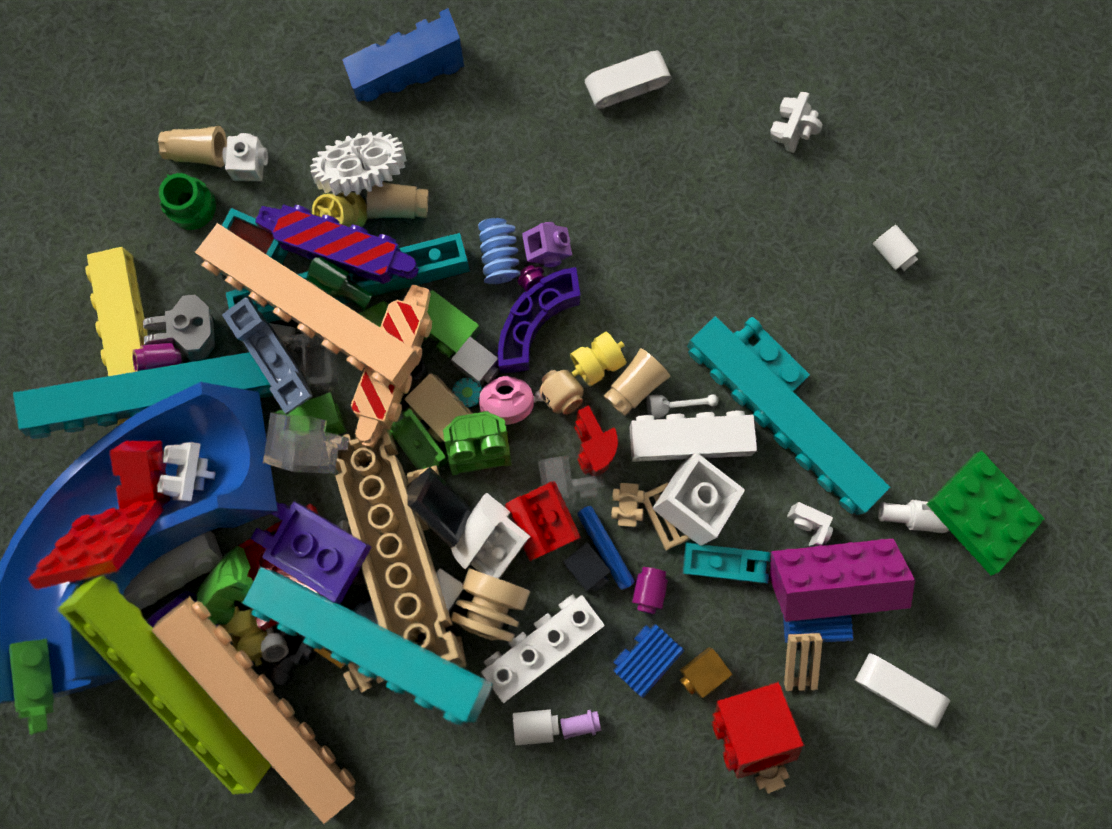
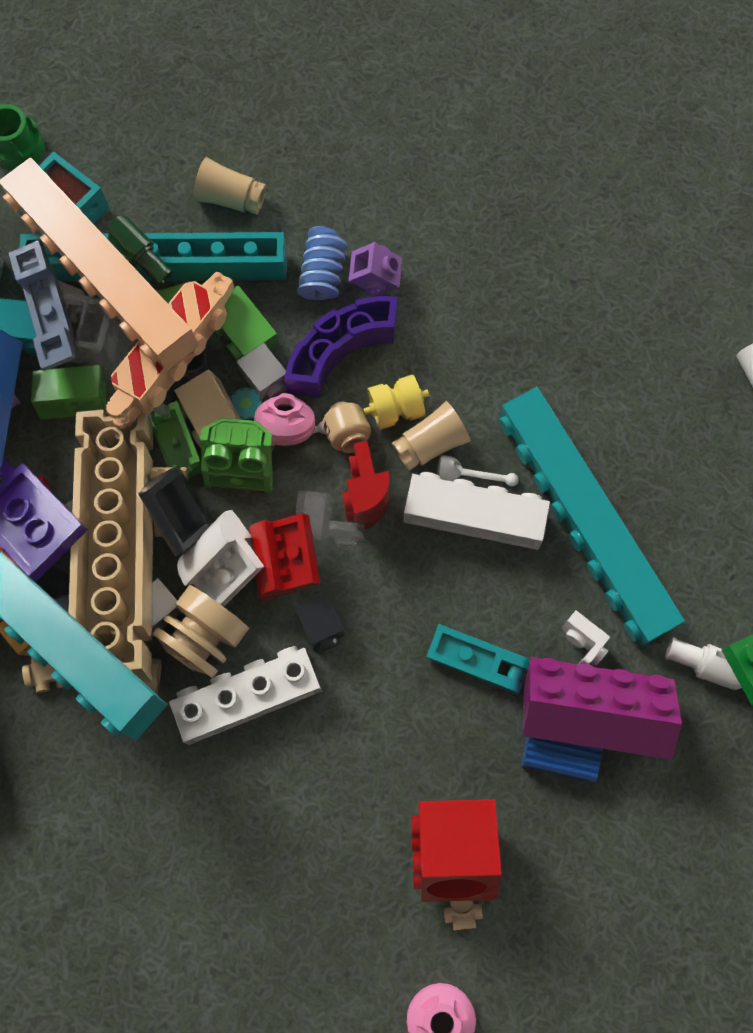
camera: 20 degrees right, 5 degrees down
(194, 145) = (40, 86): tan plant -> none
(244, 157) = (85, 109): white brick -> none
(302, 444) = (48, 404): clear plate -> none
(344, 246) = (159, 216): dark purple hinge -> none
(346, 209) = (165, 184): light yellow wheel -> none
(358, 163) = (199, 139): white gear -> none
(406, 59) = (281, 49): blue wedge -> none
(530, 276) = (347, 297): magenta plate -> none
(534, 727) = (211, 781): white brick -> none
(581, 725) = (264, 793): lavender pin -> none
(605, 547) = (348, 607): blue axle -> none
(627, 79) = (511, 123): white beam -> none
(629, 499) = (384, 573): tan piece -> none
(647, 659) = (358, 740): blue brick -> none
(650, 590) = (383, 665): magenta brick -> none
(659, 529) = (430, 620): tan tile -> none
(699, 499) = (463, 578): white brick -> none
(704, 673) = (417, 772): pearl gold brick -> none
(772, 354) = (592, 447): teal plate -> none
(801, 123) = (687, 211): white hips -> none
(802, 681) = (527, 814): tan tile -> none
(902, 690) = (641, 856): white beam -> none

